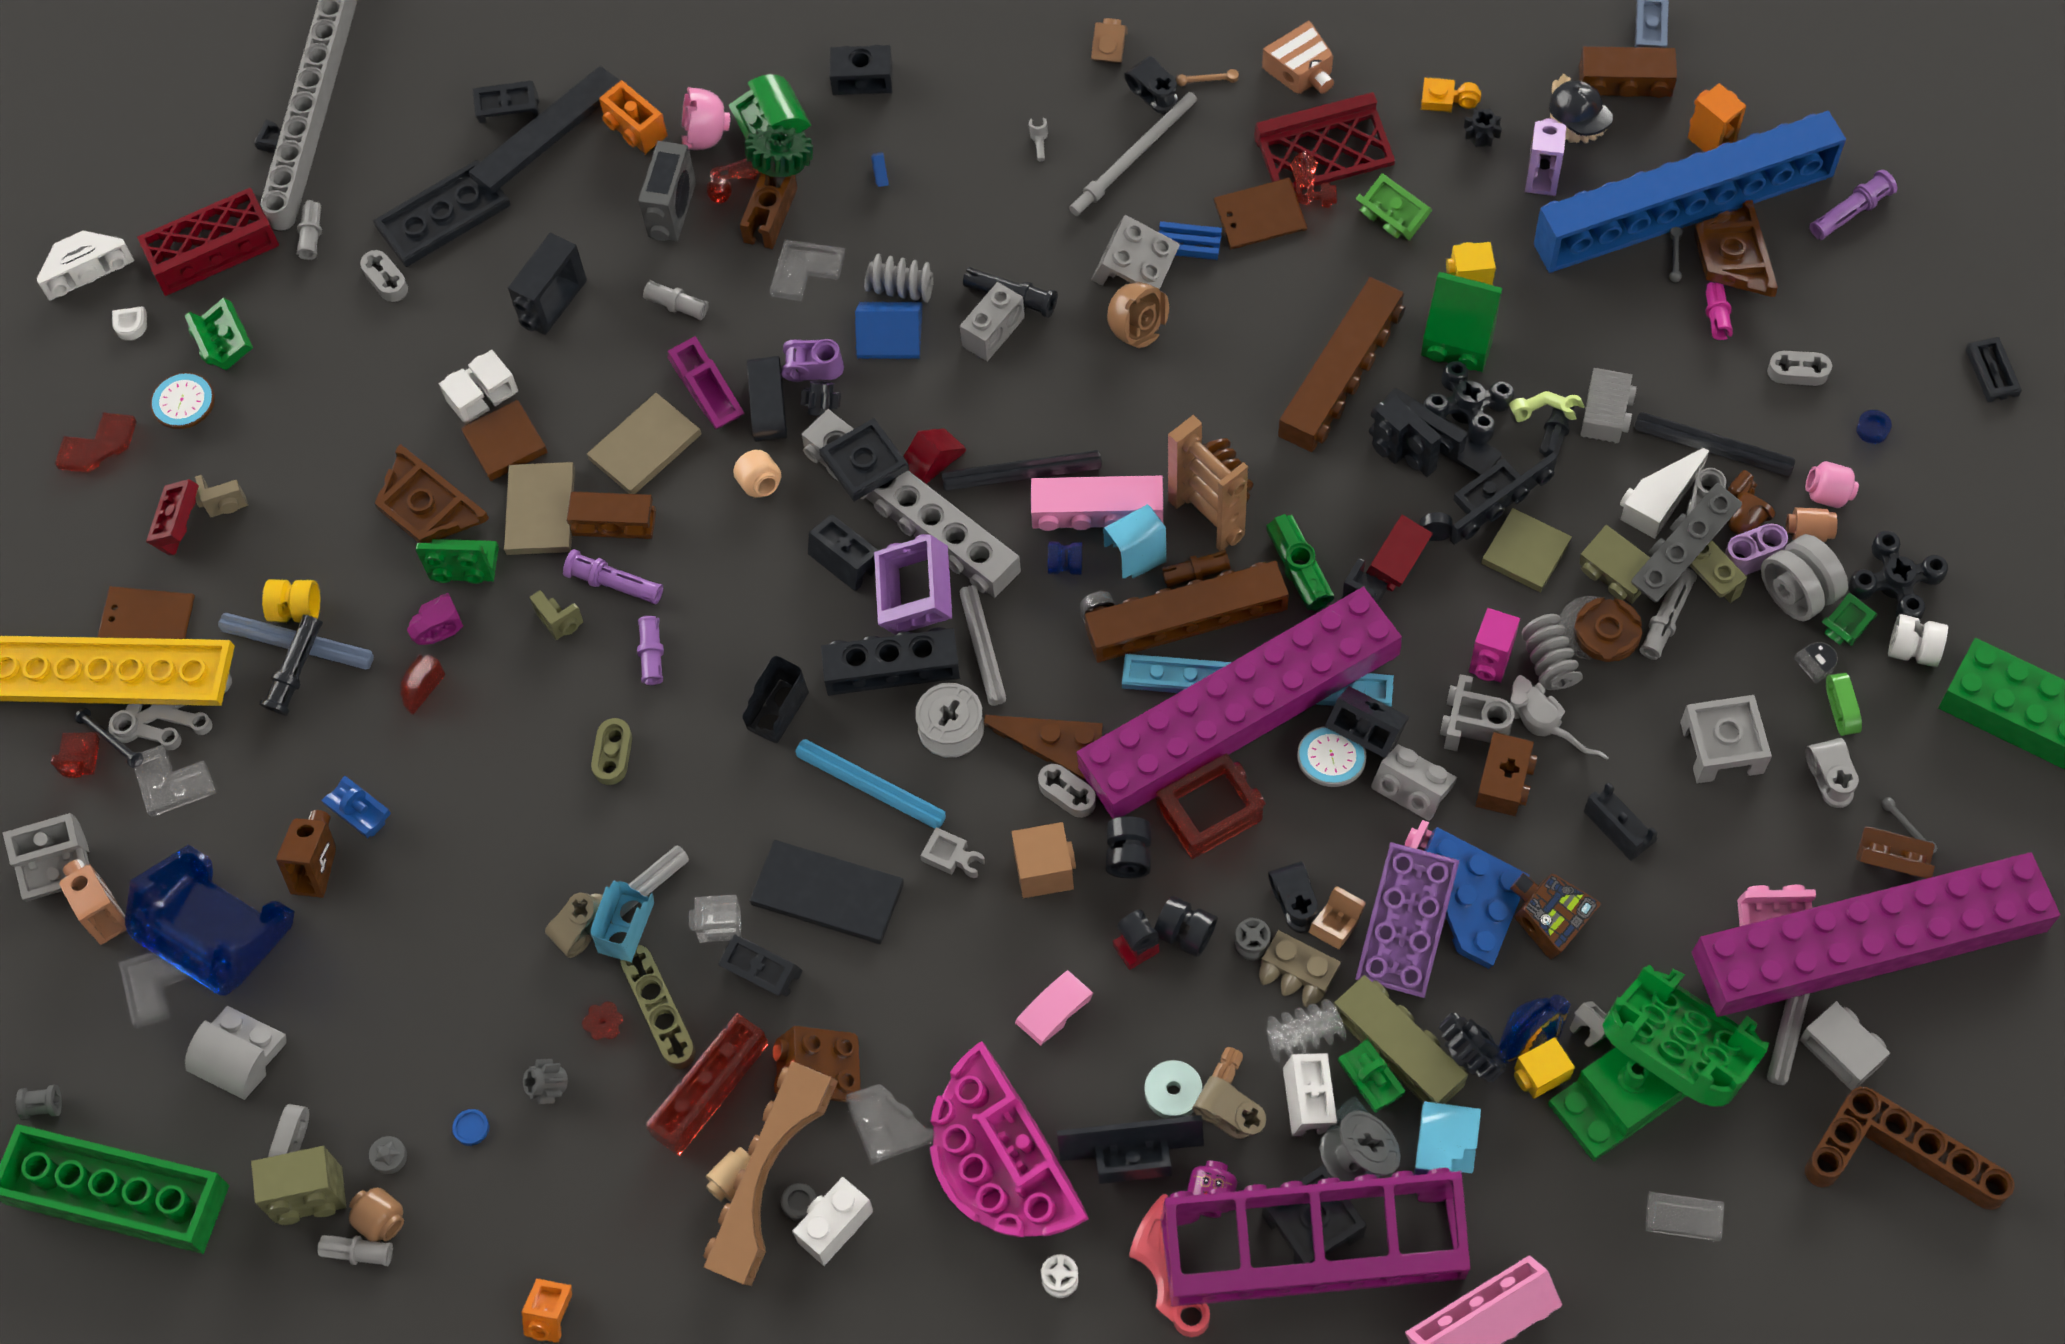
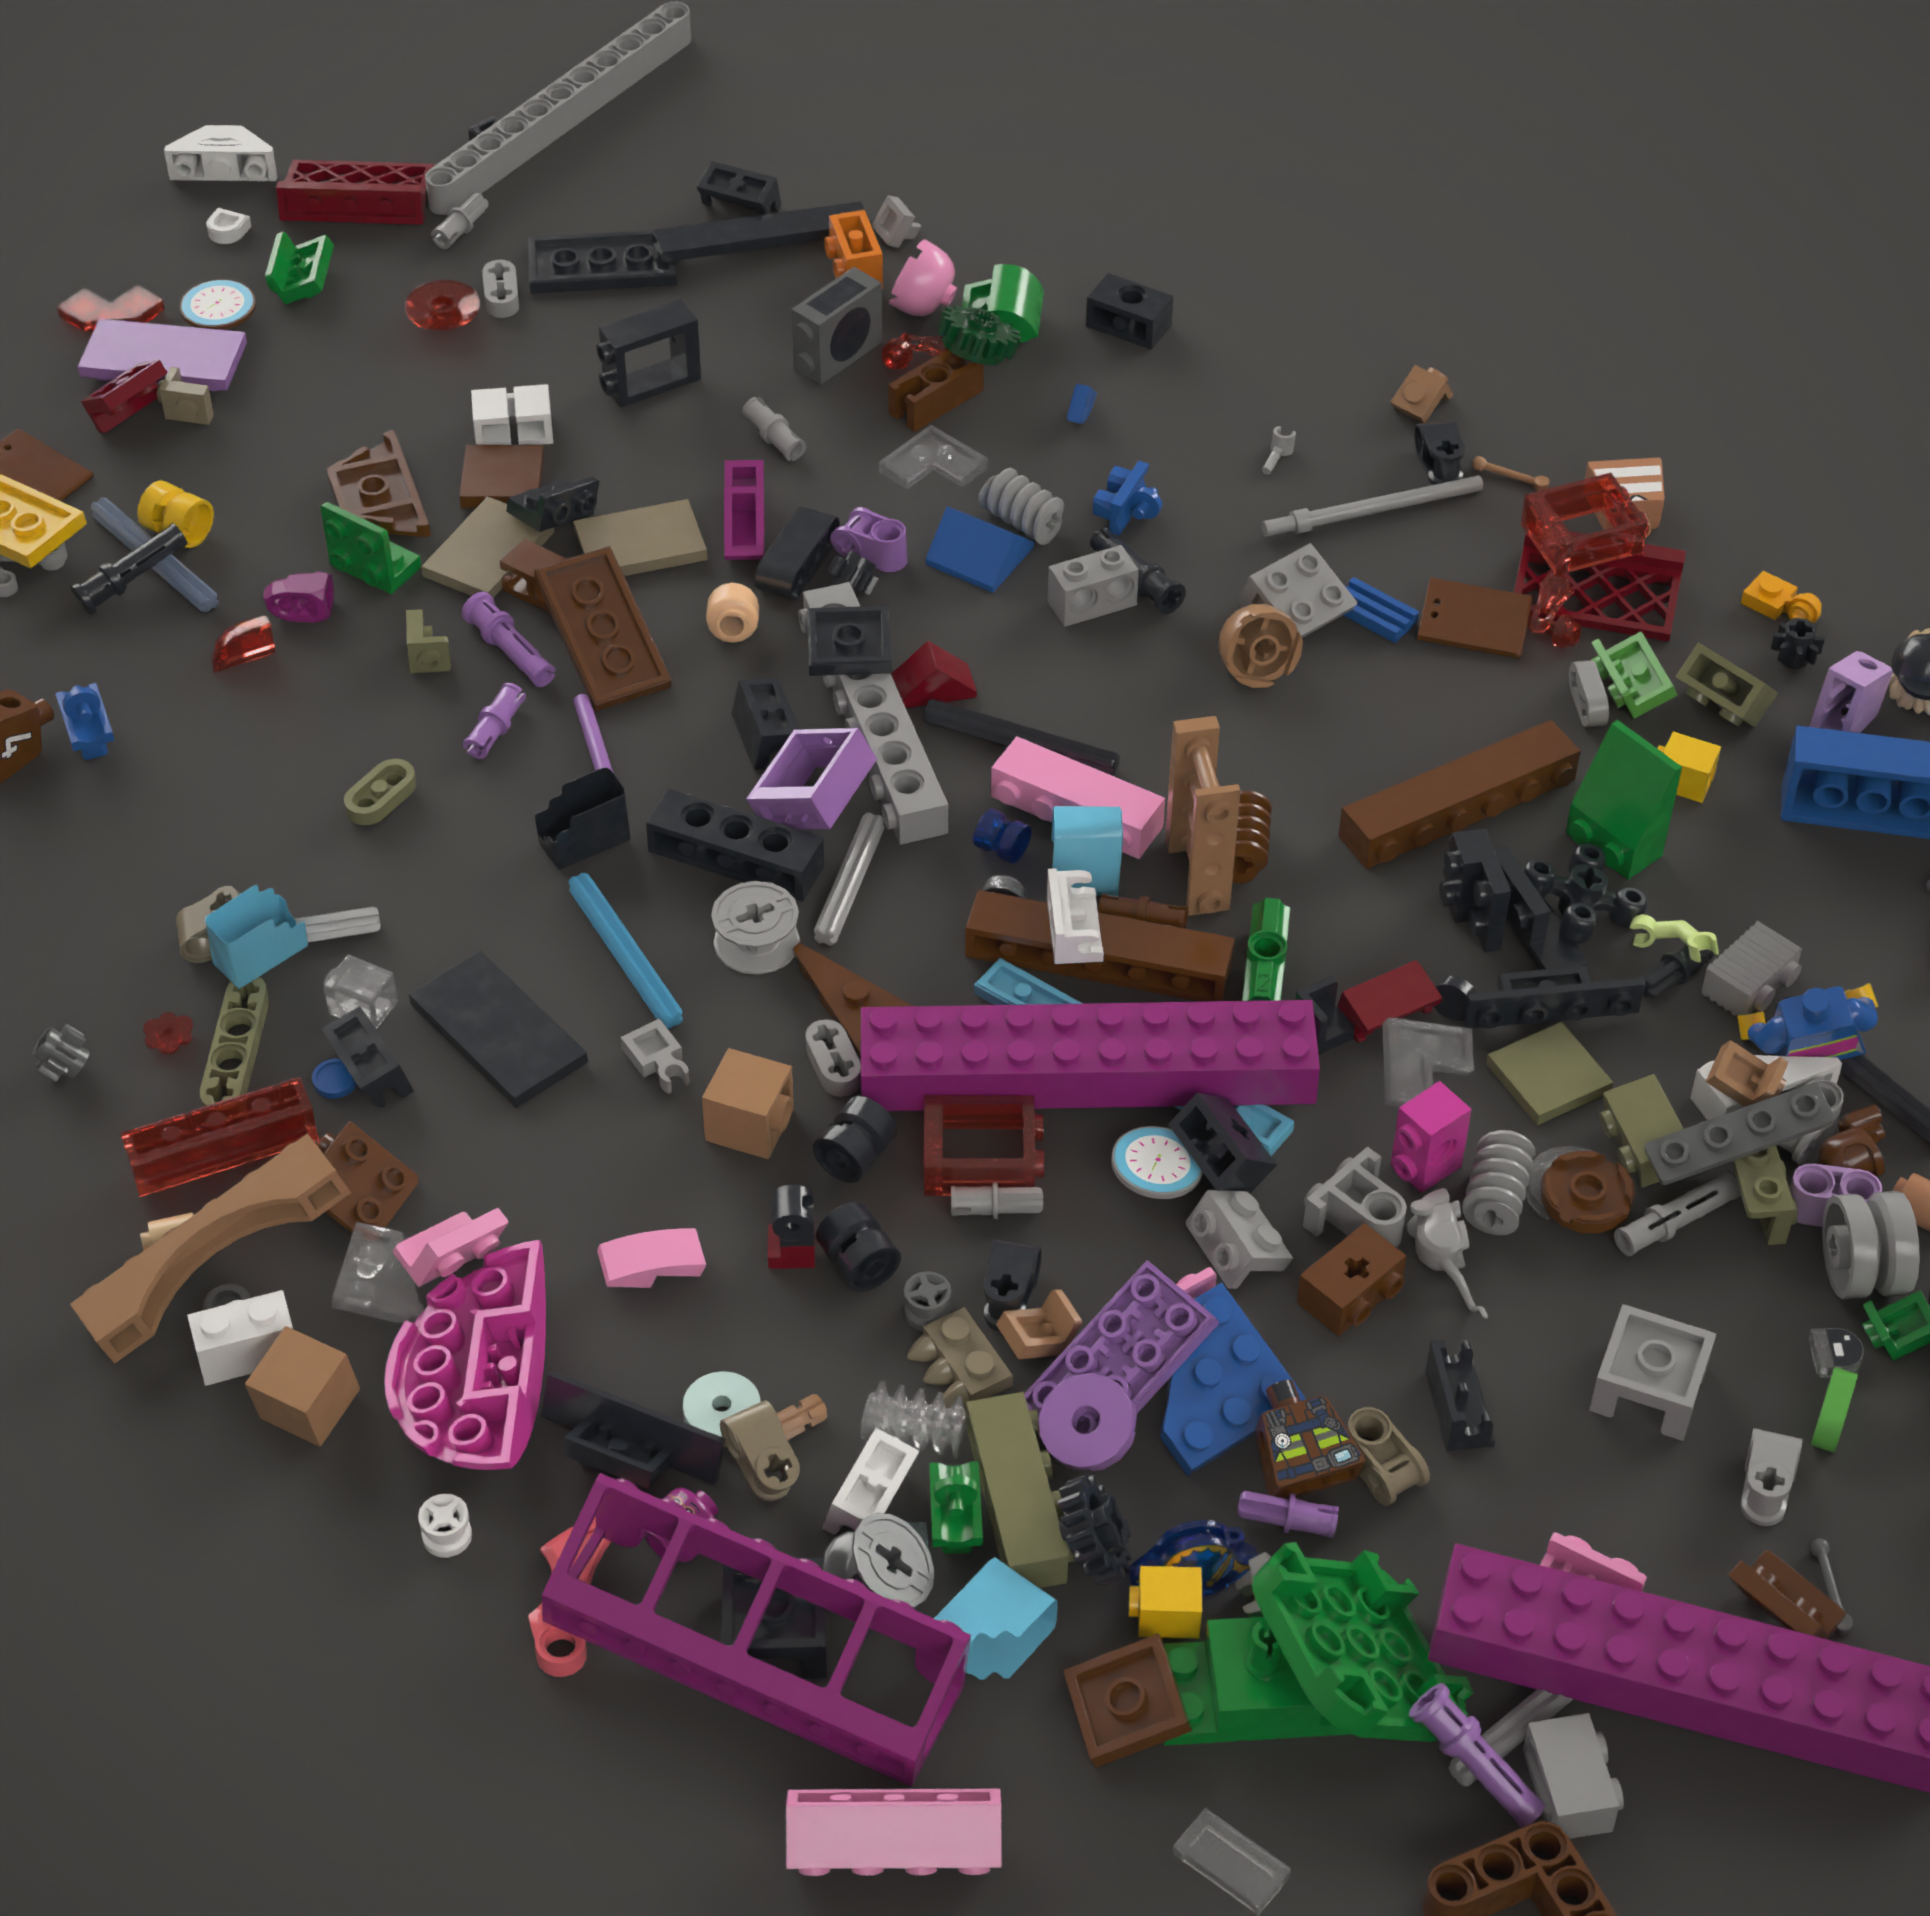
camera: 25 degrees right, 15 degrees down
(140, 473) = (200, 353): none -> tile
(352, 305) = (442, 305): none -> clear red dish
(565, 448) = (555, 503): none -> black bracket
(639, 73) = (895, 222): none -> light grey tile
(678, 536) = (602, 628): none -> reddish brown tile
(731, 629) = (591, 732): none -> medium lavender bar
(741, 992) = (332, 1079): none -> blue piece
(902, 1235) = (302, 1386): none -> medium nougat head
(921, 1076) = (450, 1245): none -> bright pink bracket
(963, 245) = (1130, 500): none -> blue hips
(1166, 605) = (1073, 918): none -> white hinge
(1244, 840) = (995, 1200): none -> light grey axle
(1286, 129) = (1547, 509): none -> clear red window
(1374, 238) = (1588, 693): none -> light grey beam
(1418, 995) = (1068, 1403): none -> medium lavender tile
(1438, 583) = (1416, 1050): none -> clear tile
(1461, 188) = (1727, 685): none -> olive brick
(1559, 1148) = (1127, 1700): none -> reddish brown tile
(1570, 962) = (1289, 1513): none -> medium lavender axle
(1606, 890) = (1390, 1460): none -> dark tan piece
(1665, 496) = (1746, 1076): none -> medium nougat bracket
(1678, 434) = (1815, 1024): none -> blue torso
(1779, 1064) = (1462, 1738): none -> medium lavender pin

